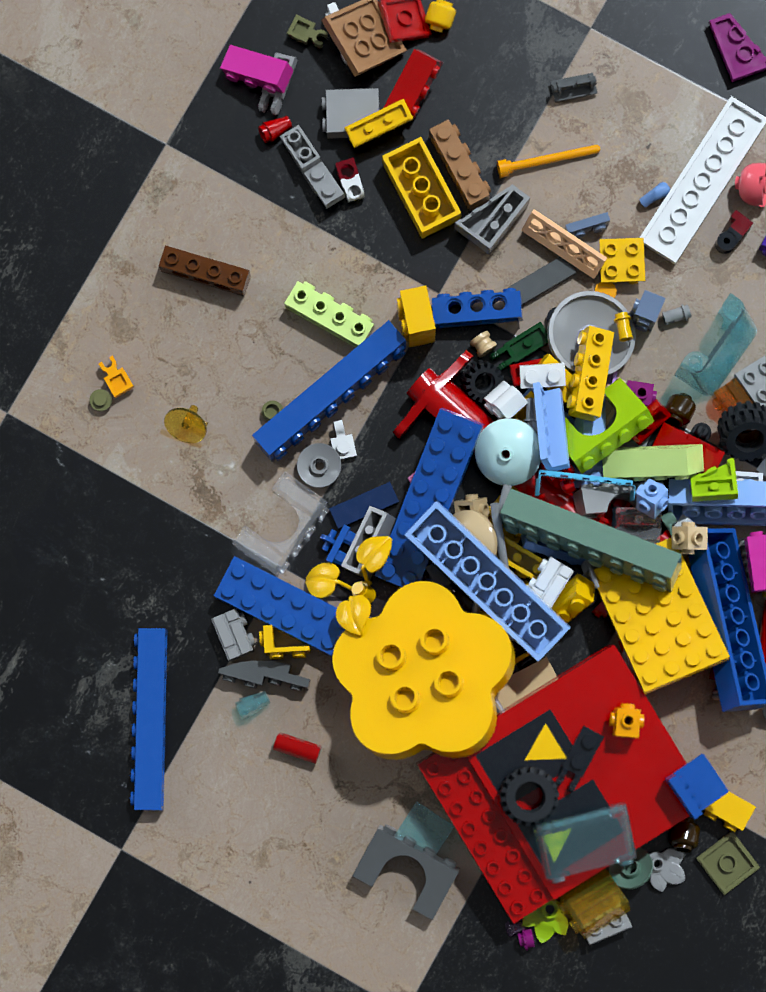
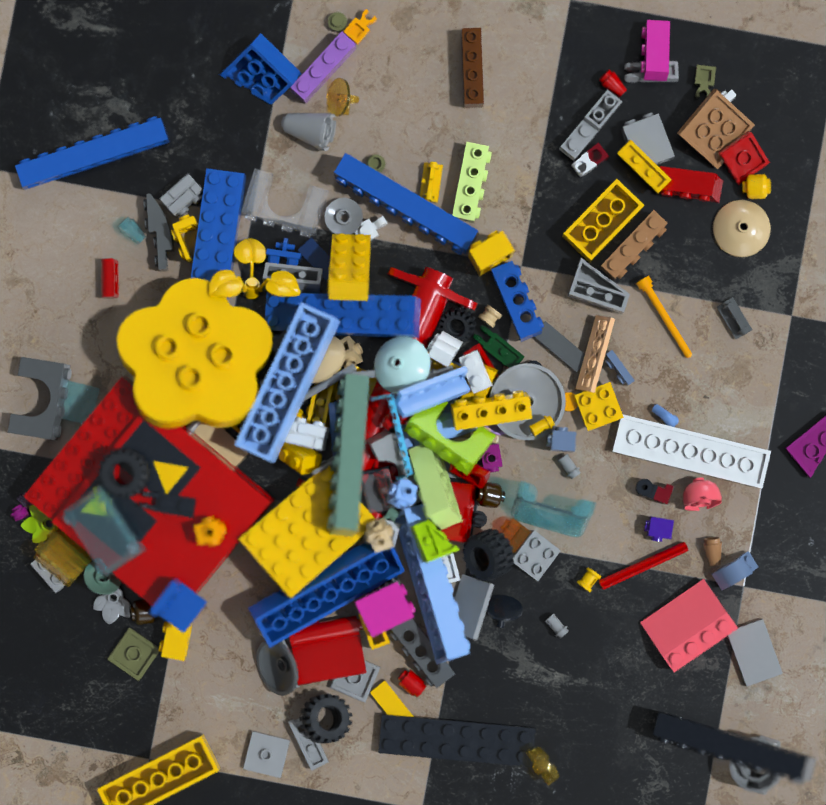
camera: 70 degrees right, 5 degrees up
(125, 499) = (262, 70): none -> blue wedge
(146, 431) = (323, 67): none -> medium lavender brick
(208, 468) = (311, 128): none -> light grey cone
(312, 358) = (431, 181): none -> yellow hinge
(380, 473) = (349, 267): none -> yellow brick
(474, 60) = (734, 239): none -> tan dish

